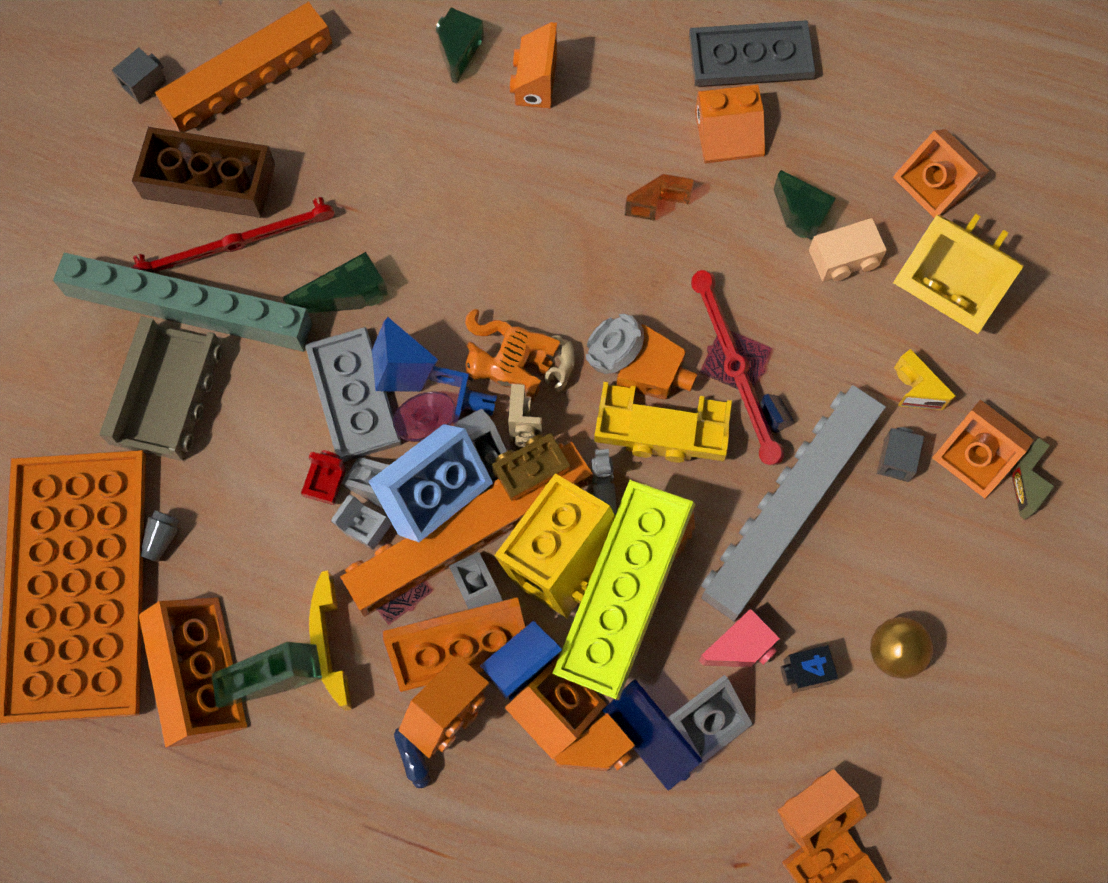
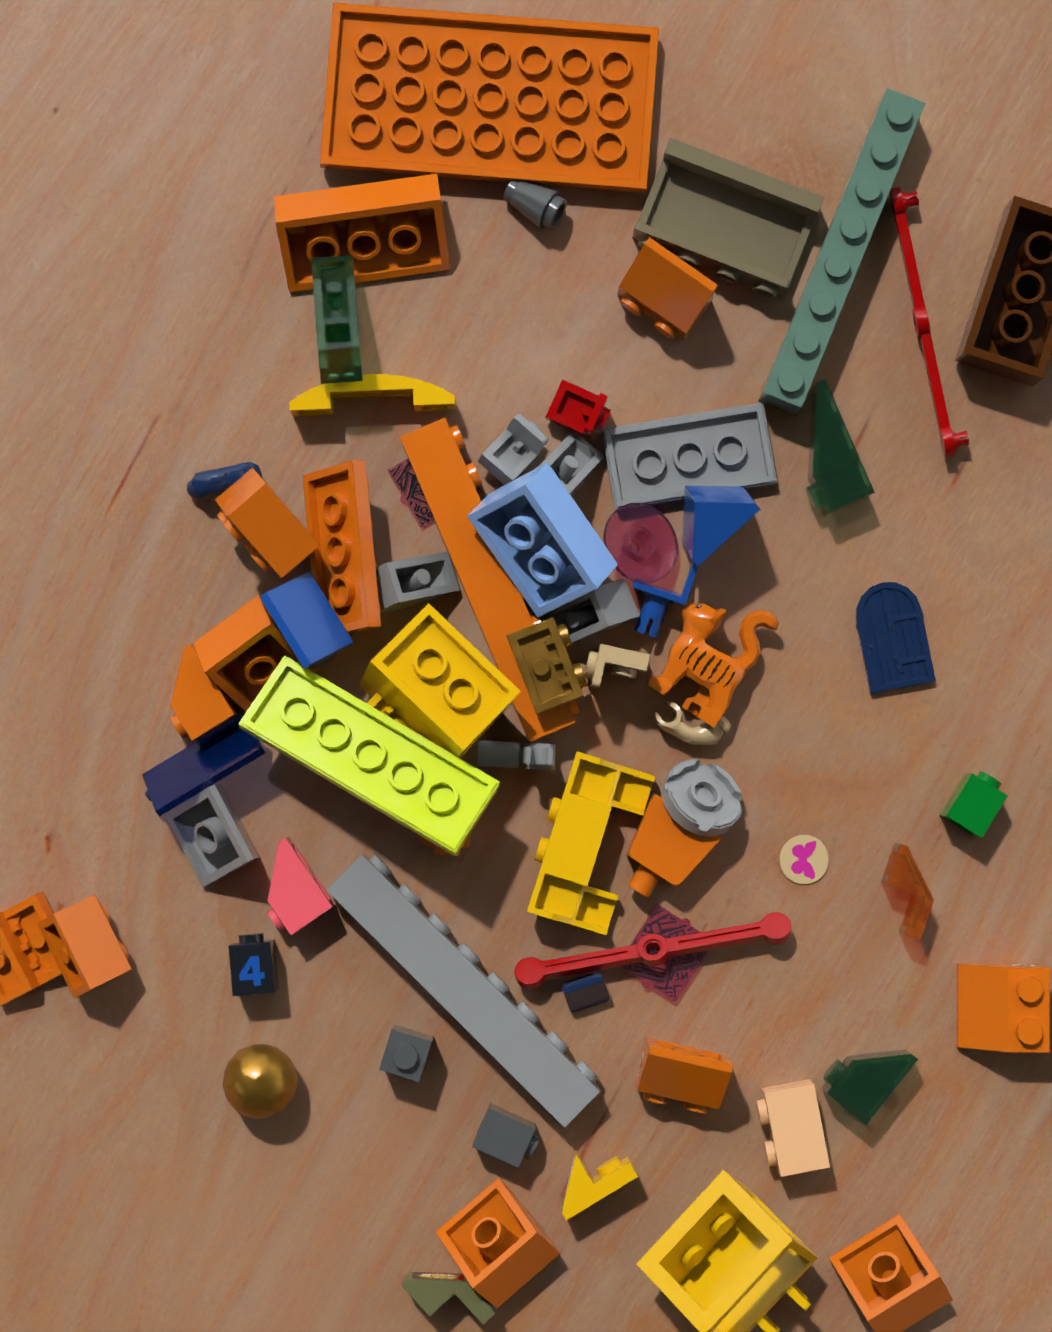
camera: 100 degrees right, 15 degrees up
(221, 421) = (666, 290): none -> orange slope
(473, 234) = (893, 638): none -> dark blue window
(588, 161) = (974, 803): none -> green brick
(647, 274) = (804, 859): none -> tan sticker
(825, 329) = (683, 1075): none -> orange slope
(853, 536) = (406, 1053): none -> dark grey brick

